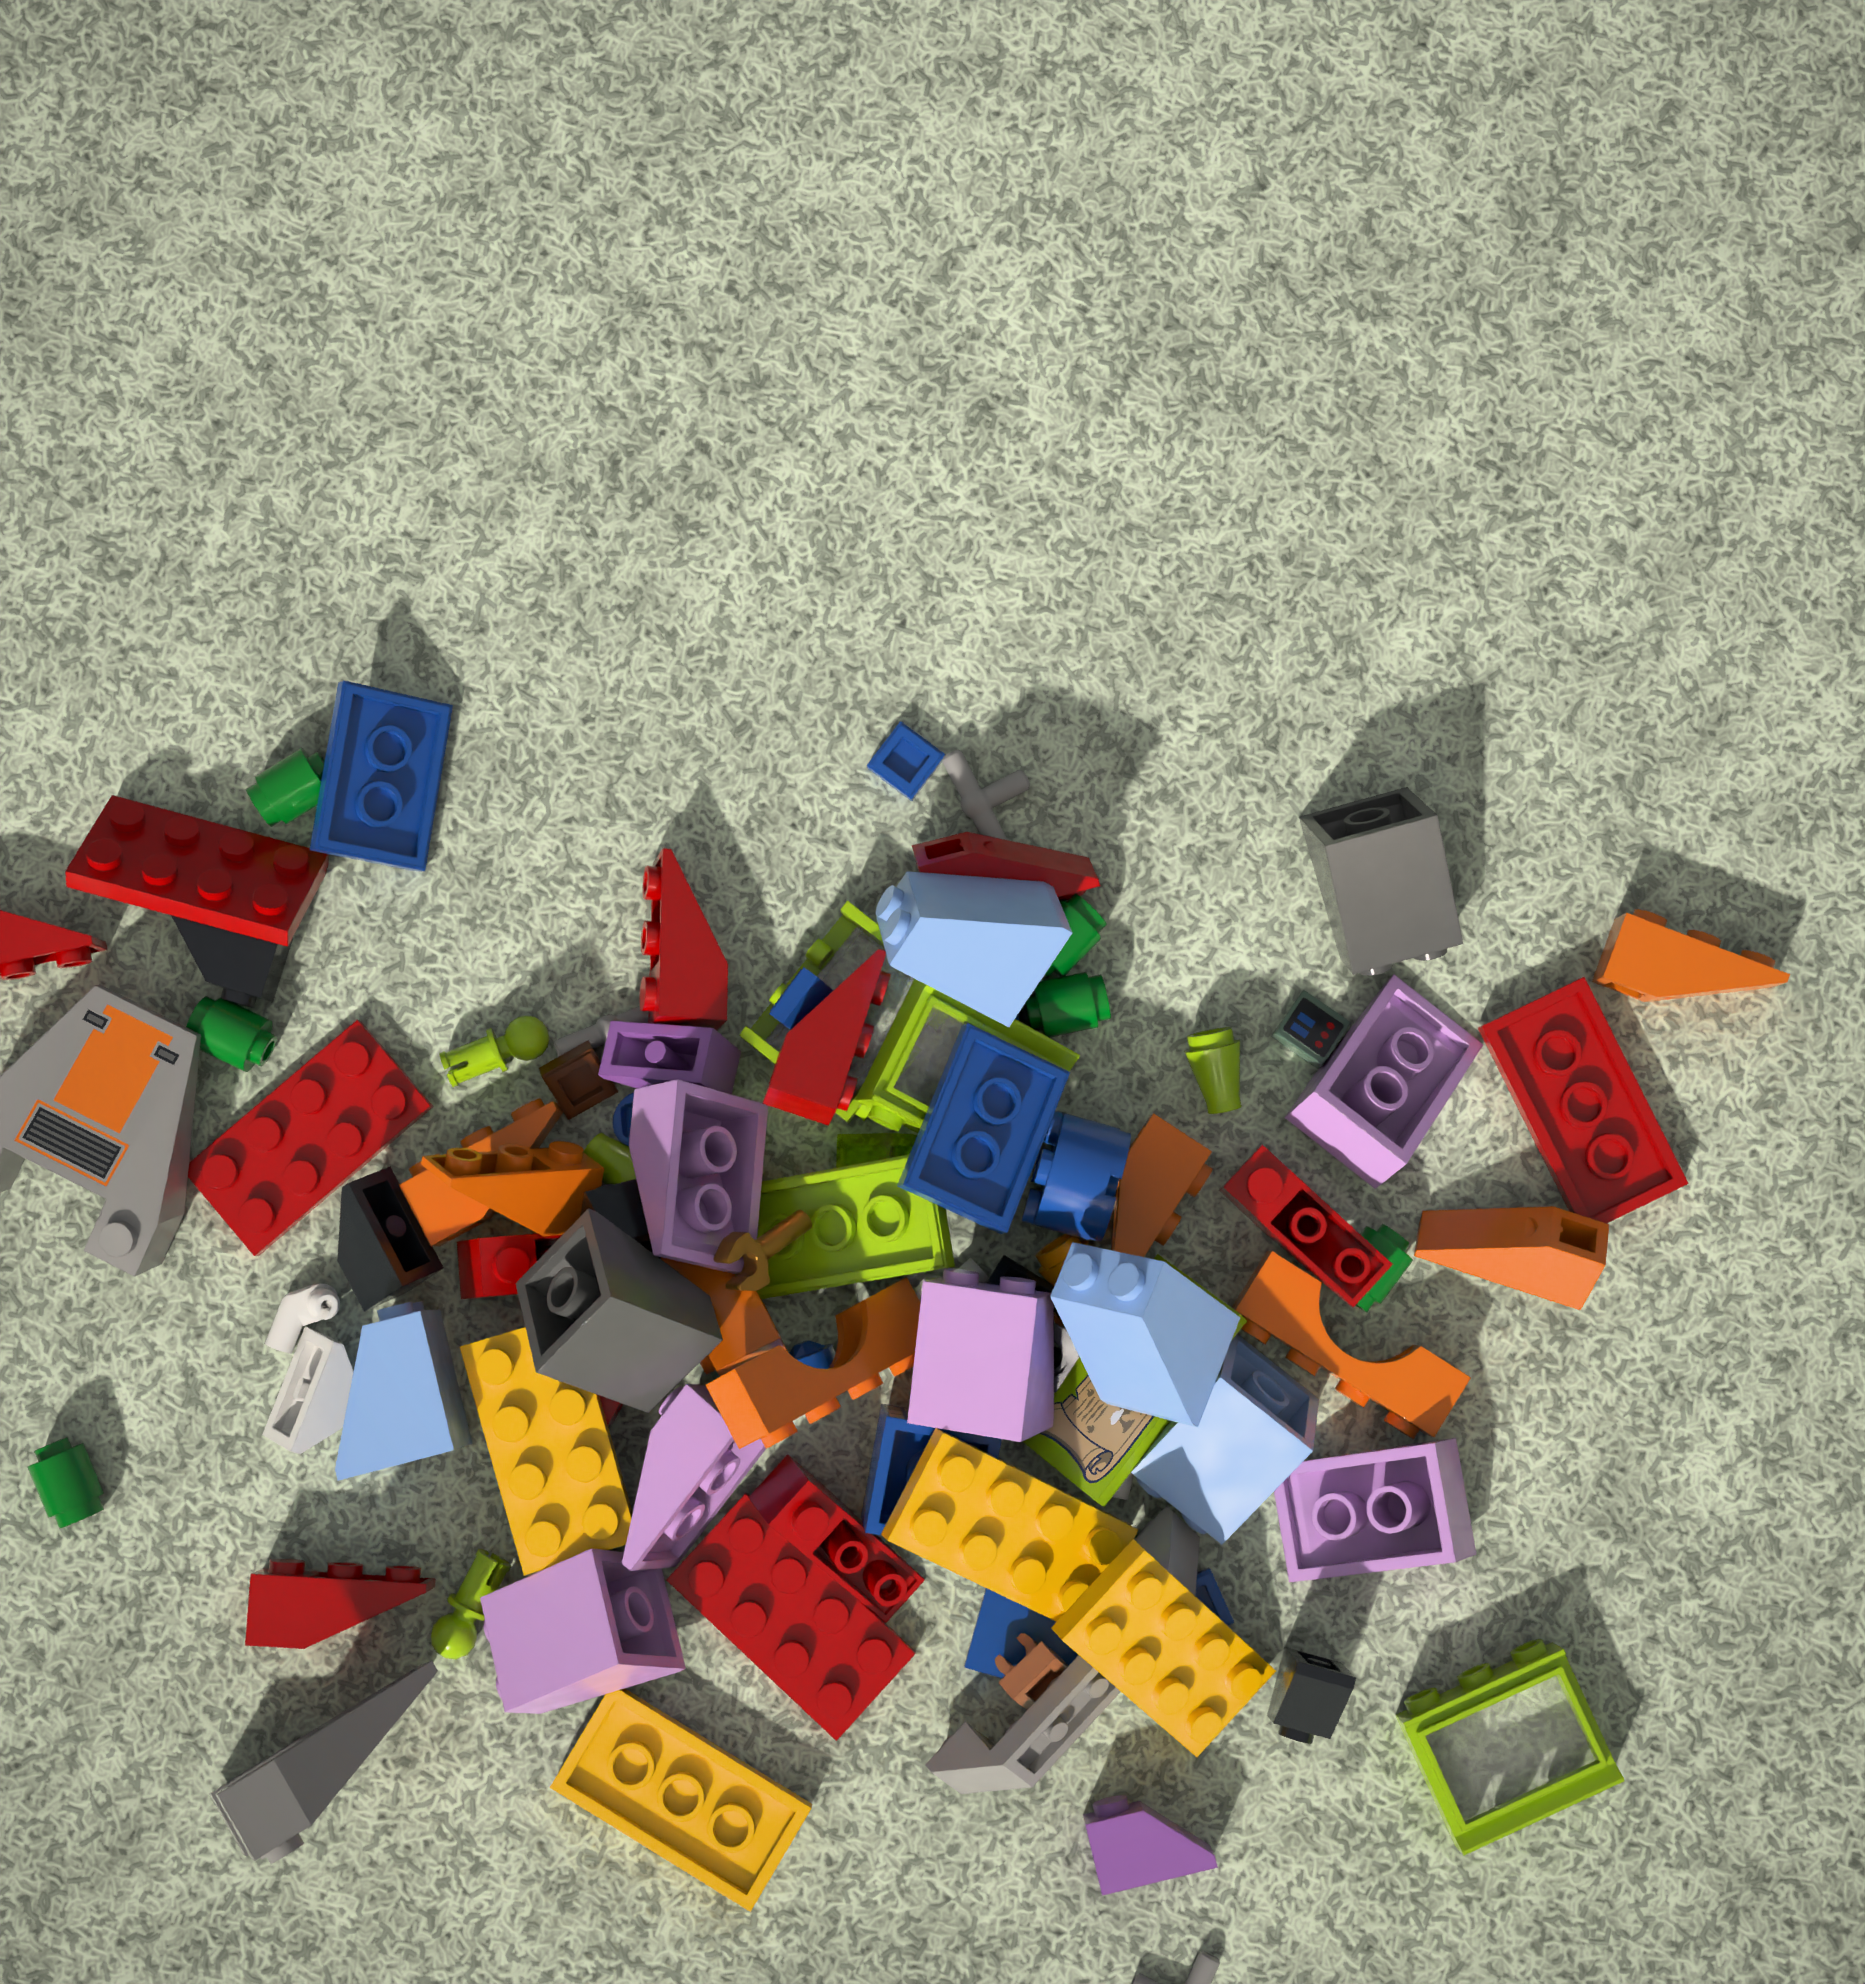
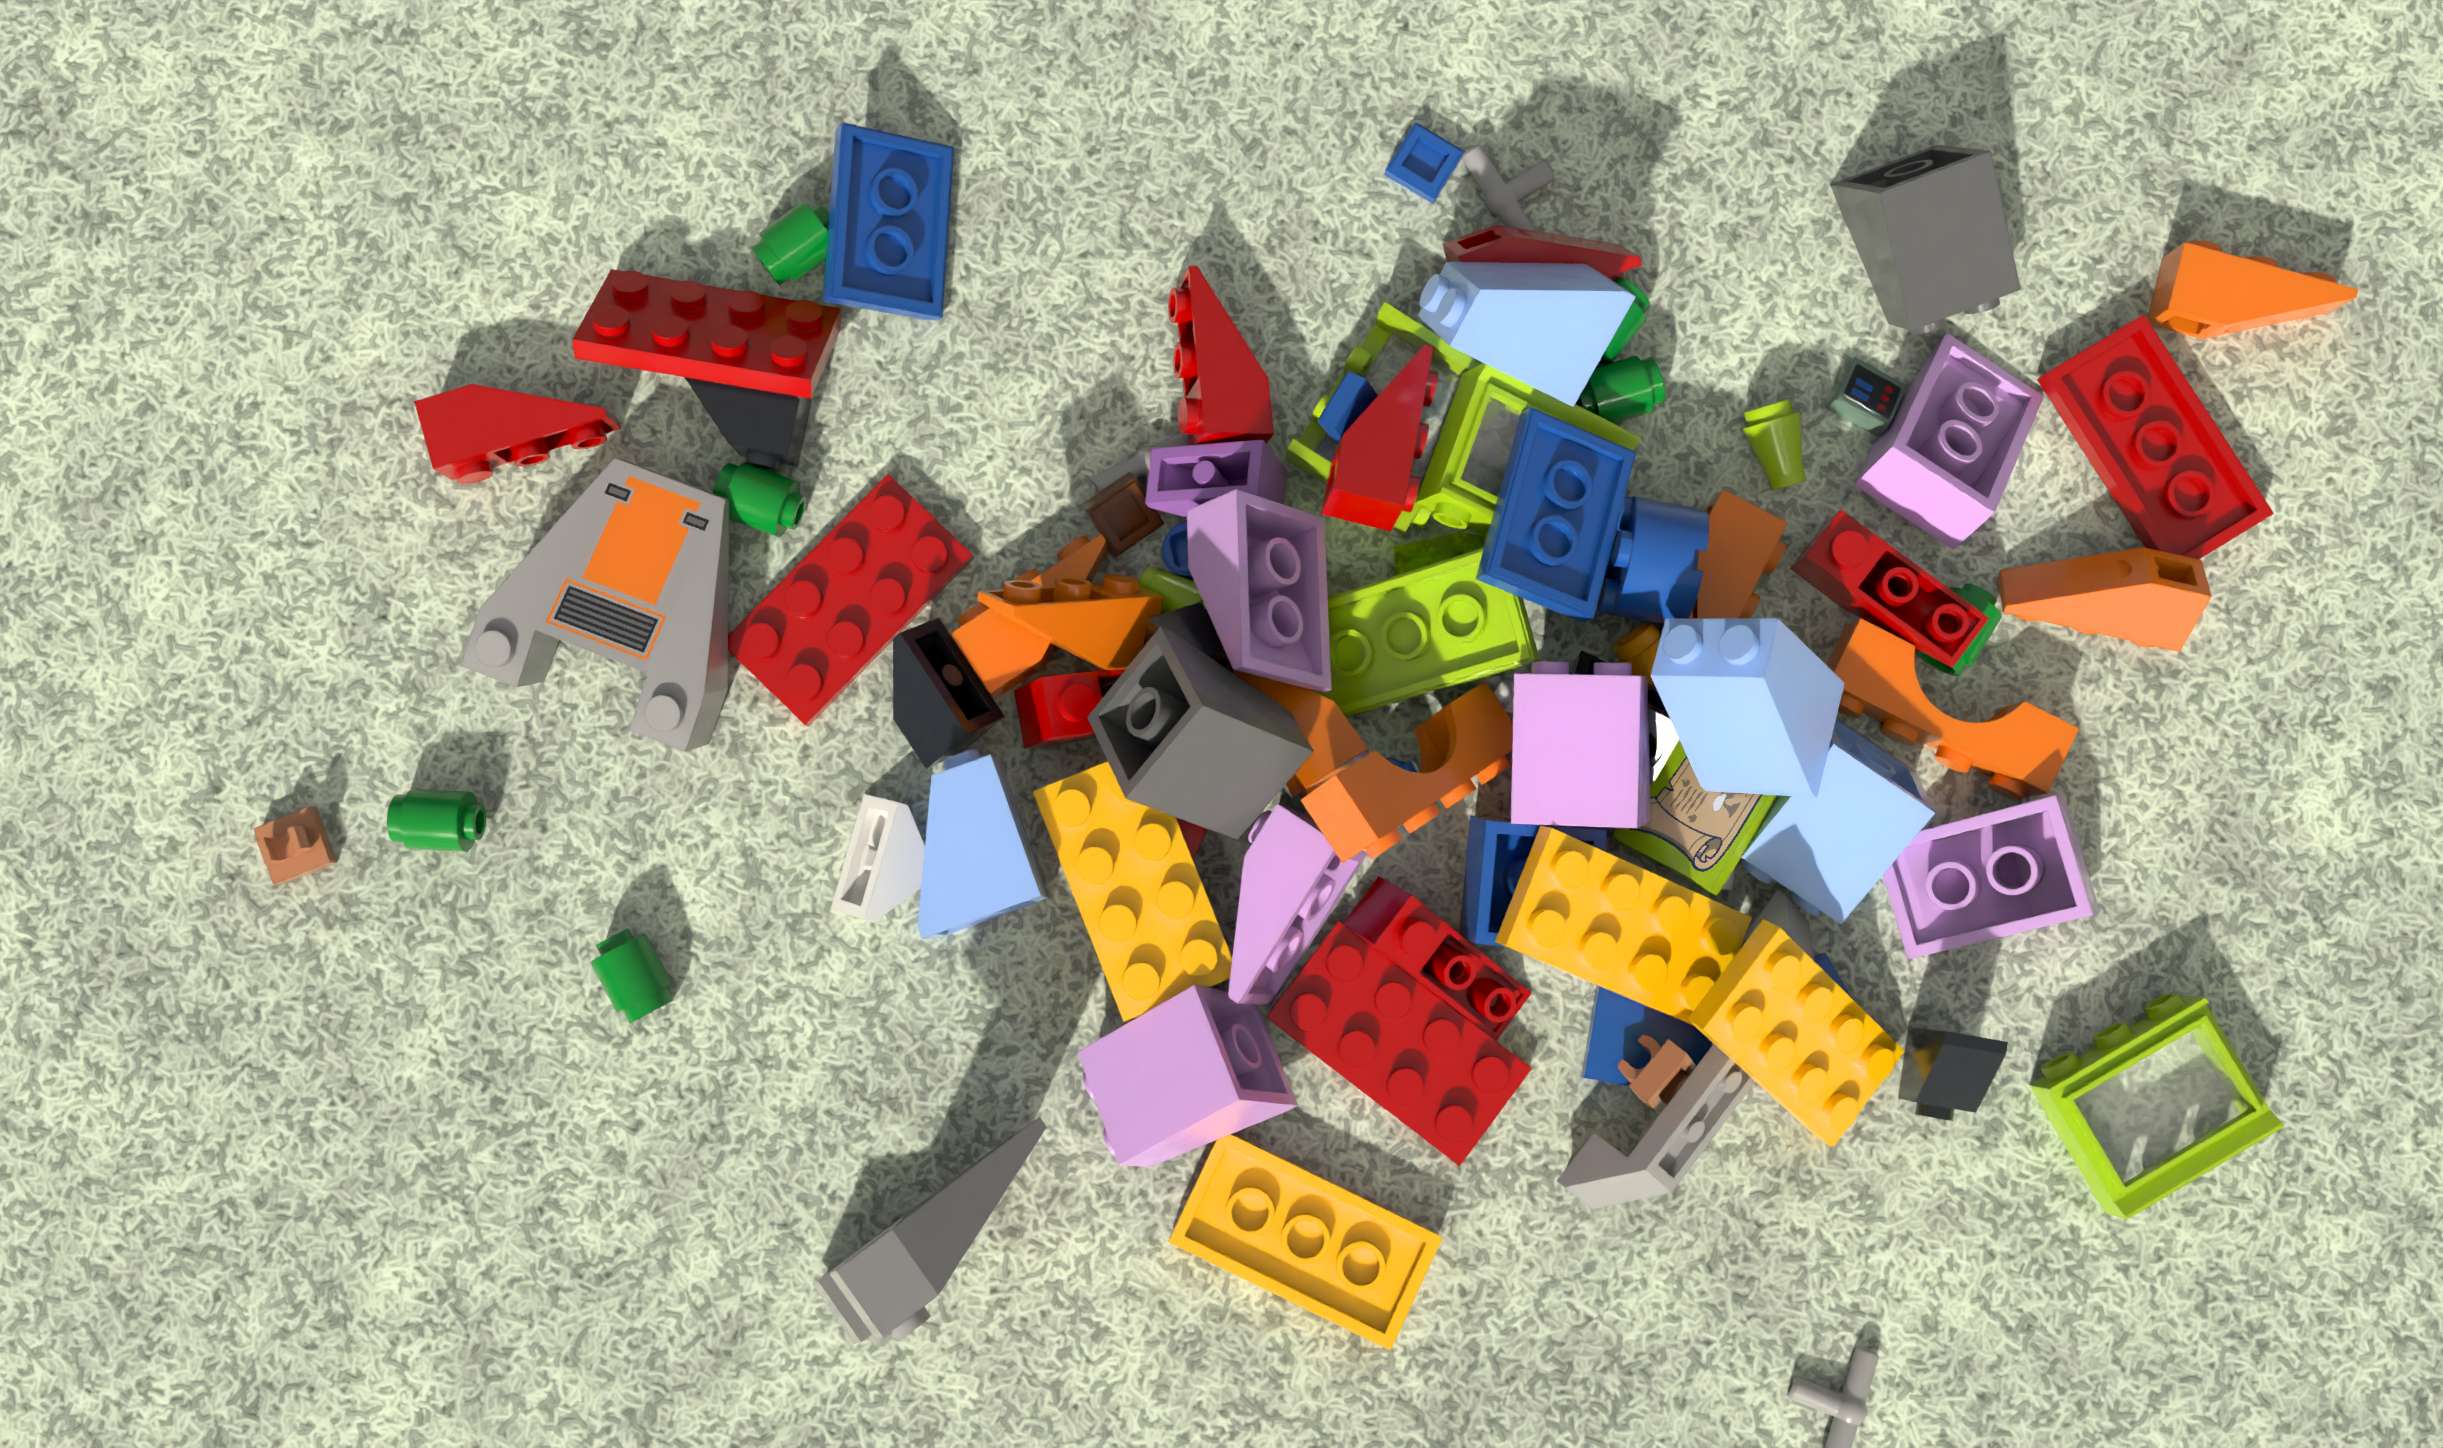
camera: 10 degrees left, 0 degrees up
(300, 1309) = (858, 775): white arm -> none
(305, 1607) = (894, 1081): red slope -> none
(455, 1632) = (1052, 1092): lime pin -> none
(523, 1038) = (1061, 478): lime pin -> none
(757, 1252) = (1335, 662): pearl gold bar -> none
(1140, 1846) = (1785, 1246): medium lavender slope -> none

